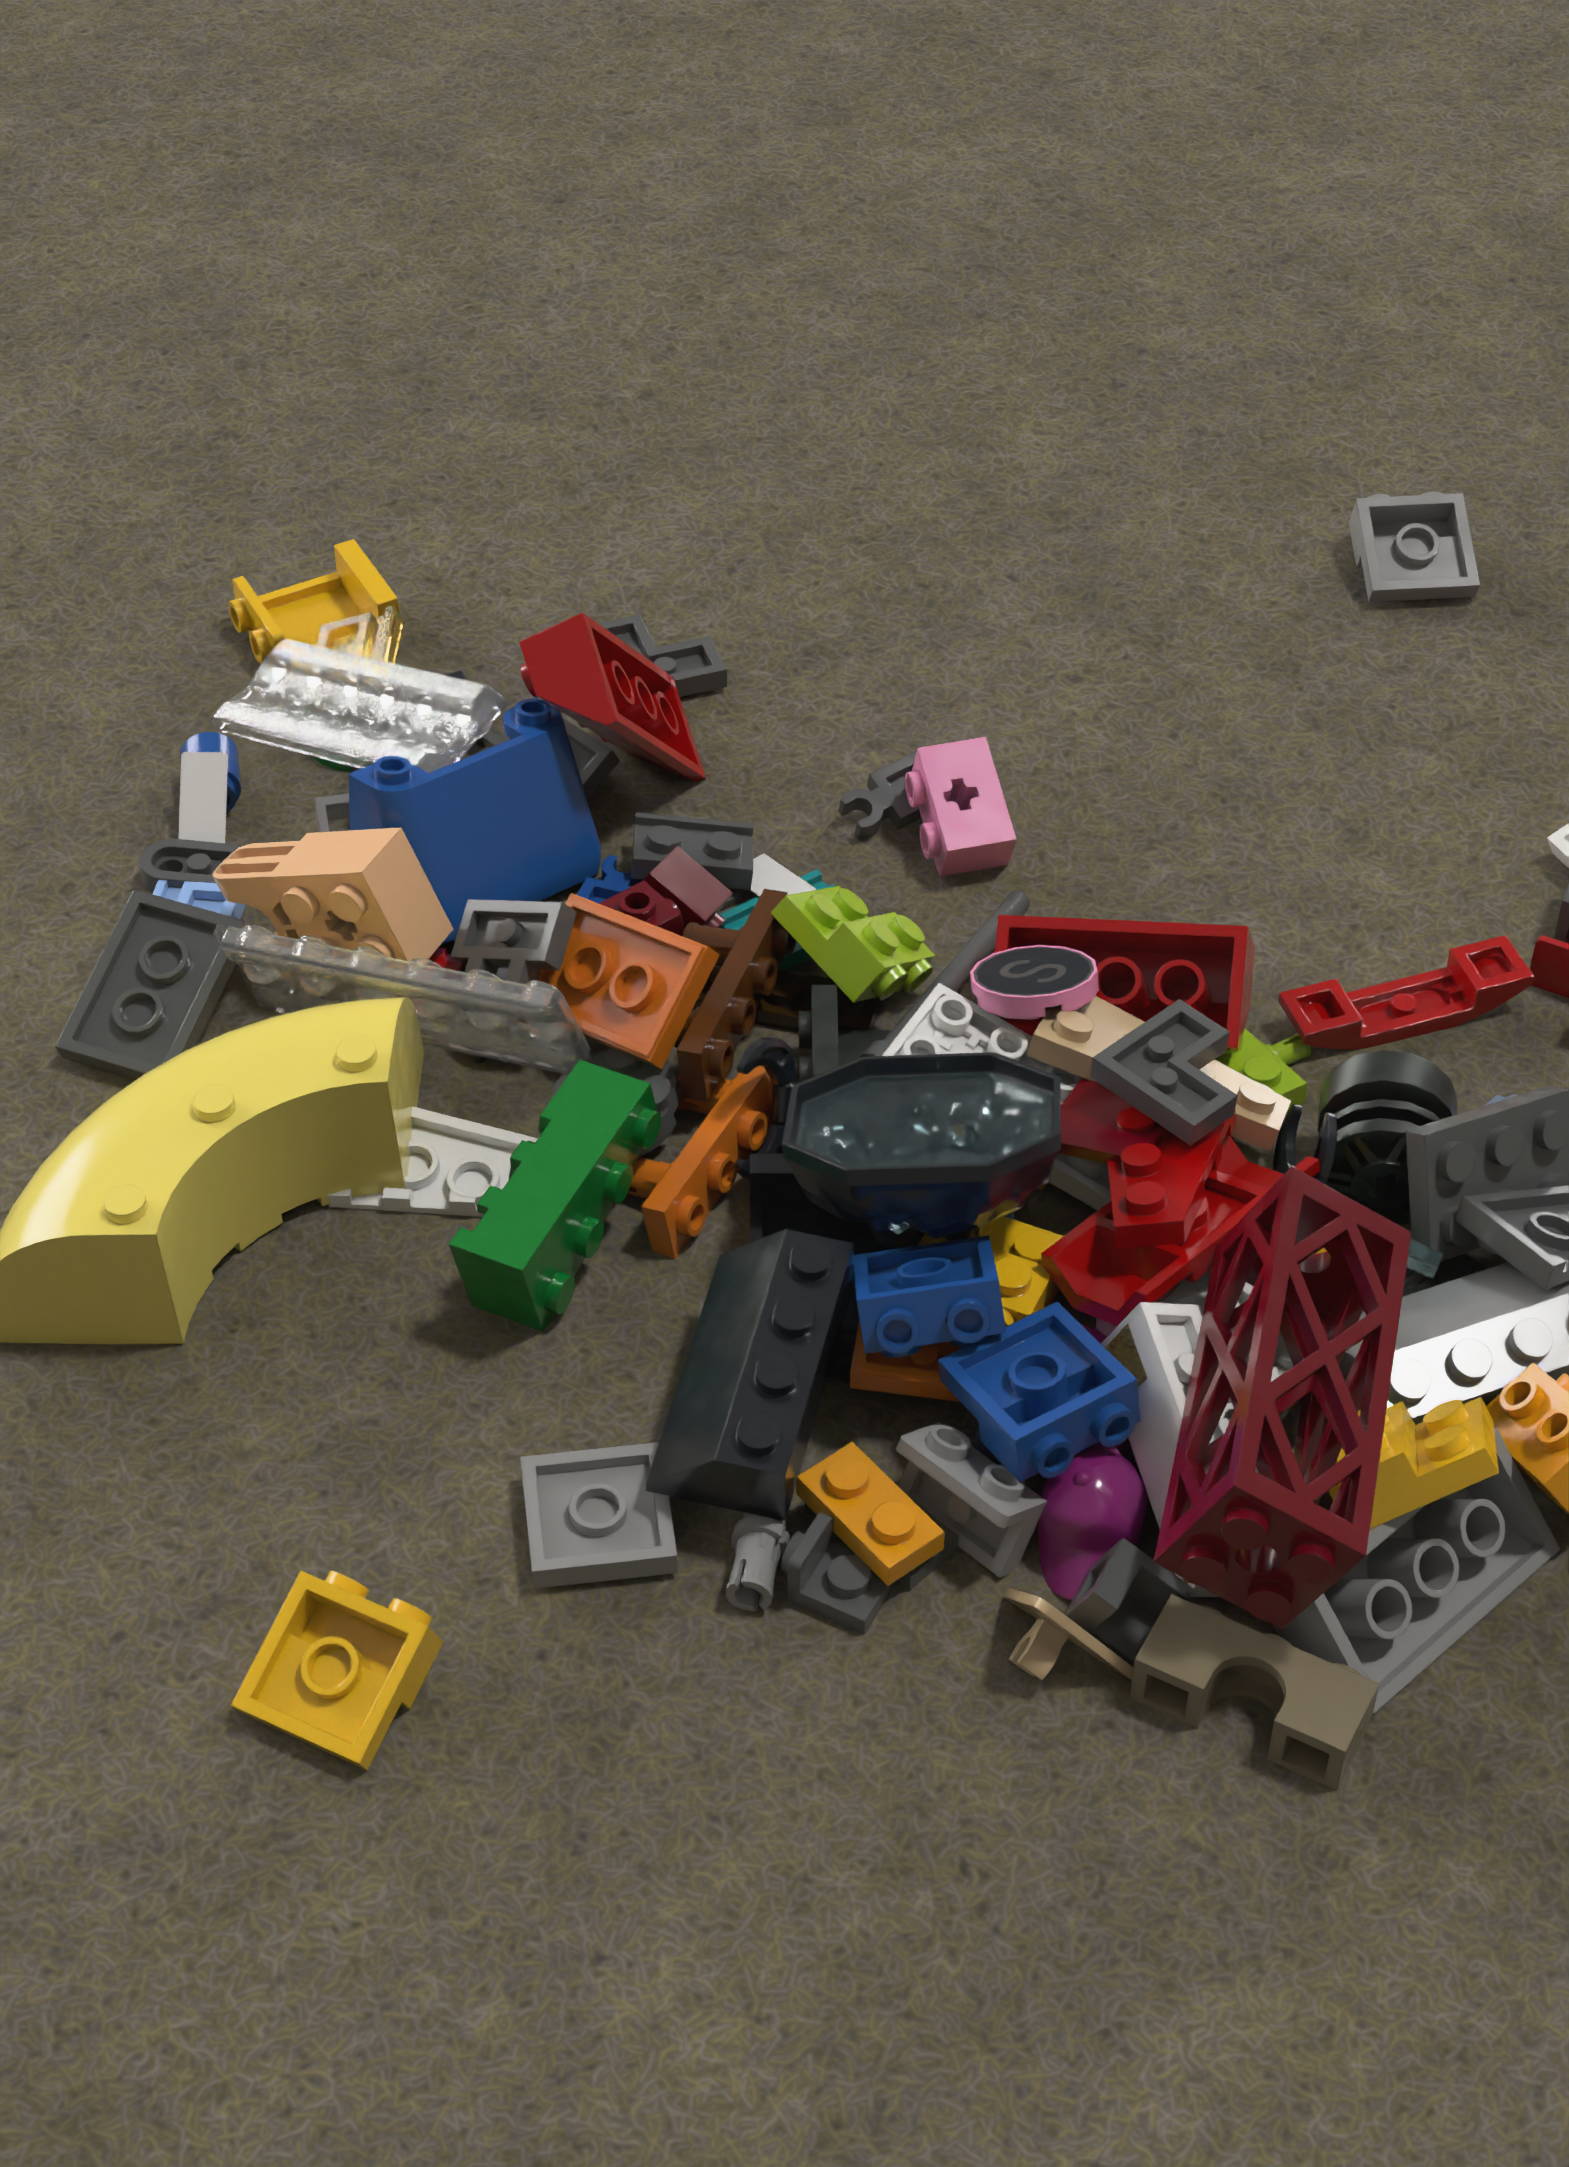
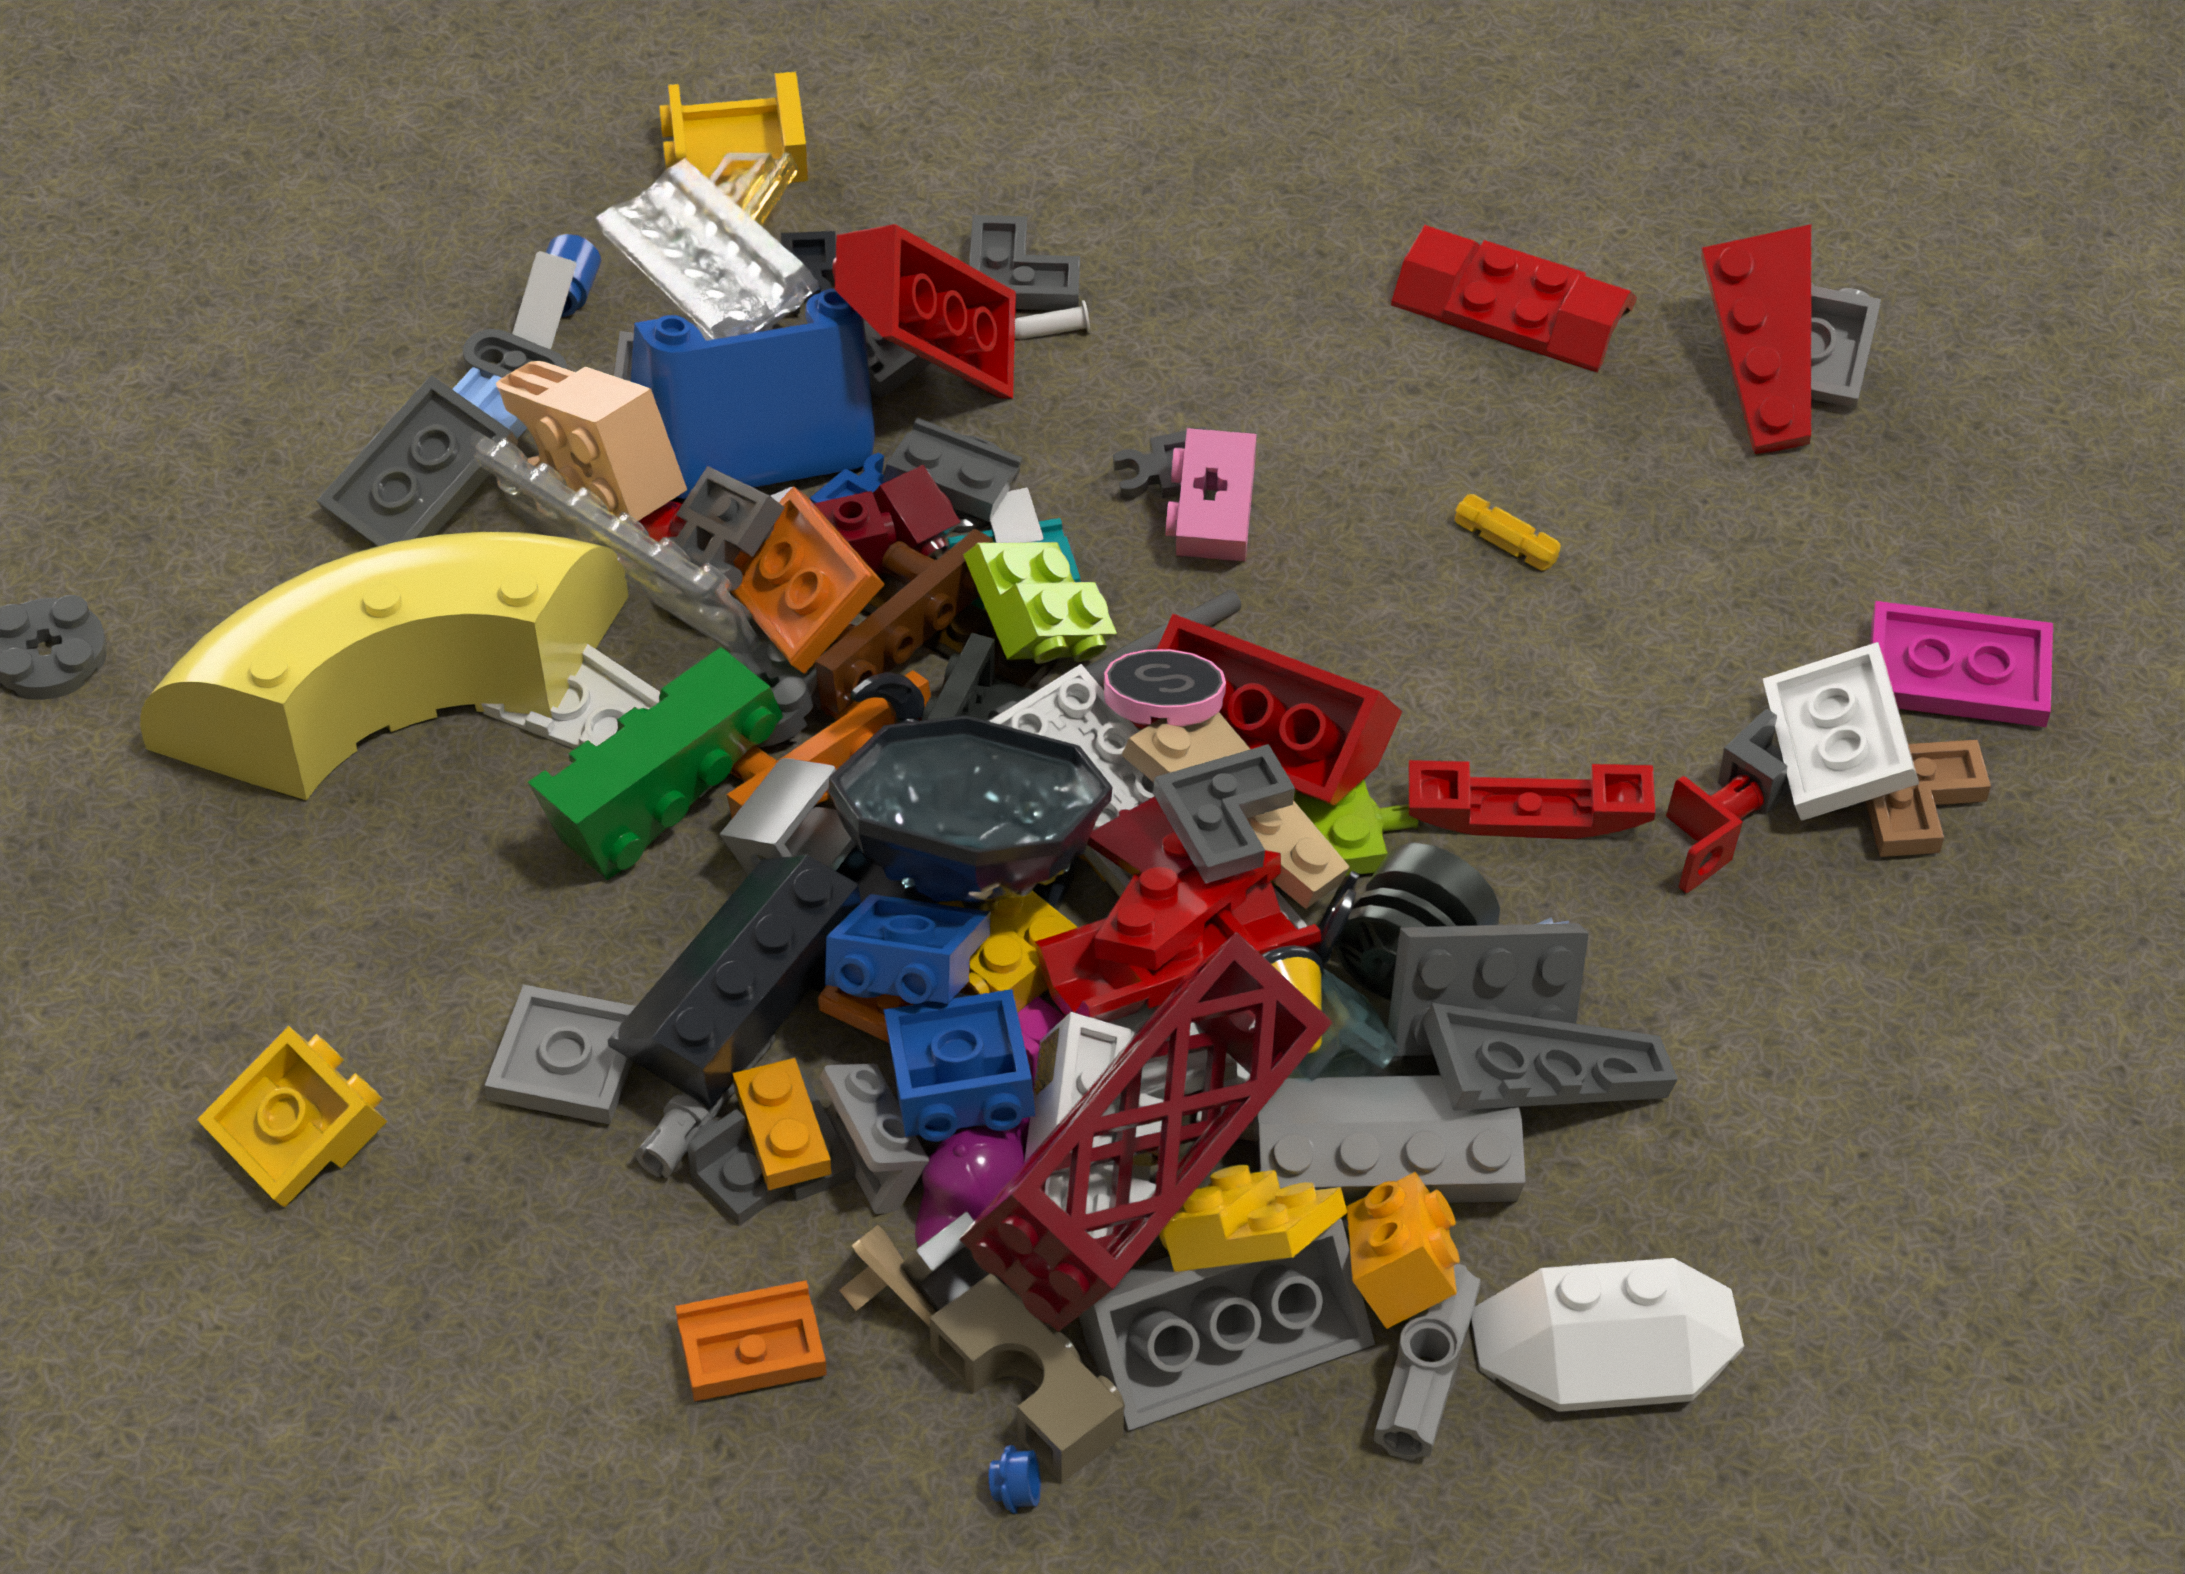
camera: 20 degrees right, 5 degrees up
(716, 699) = (1052, 322): none -> white piece
(717, 1212) = (782, 820): none -> light grey piece
(948, 1747) = (750, 1340): none -> orange plate
(1123, 578) = (1511, 297): none -> red piece
(1237, 775) = (1507, 532): none -> yellow axle
(1297, 1799) = (1015, 1479): none -> blue plate
(1375, 541) = (1765, 324): none -> red wing

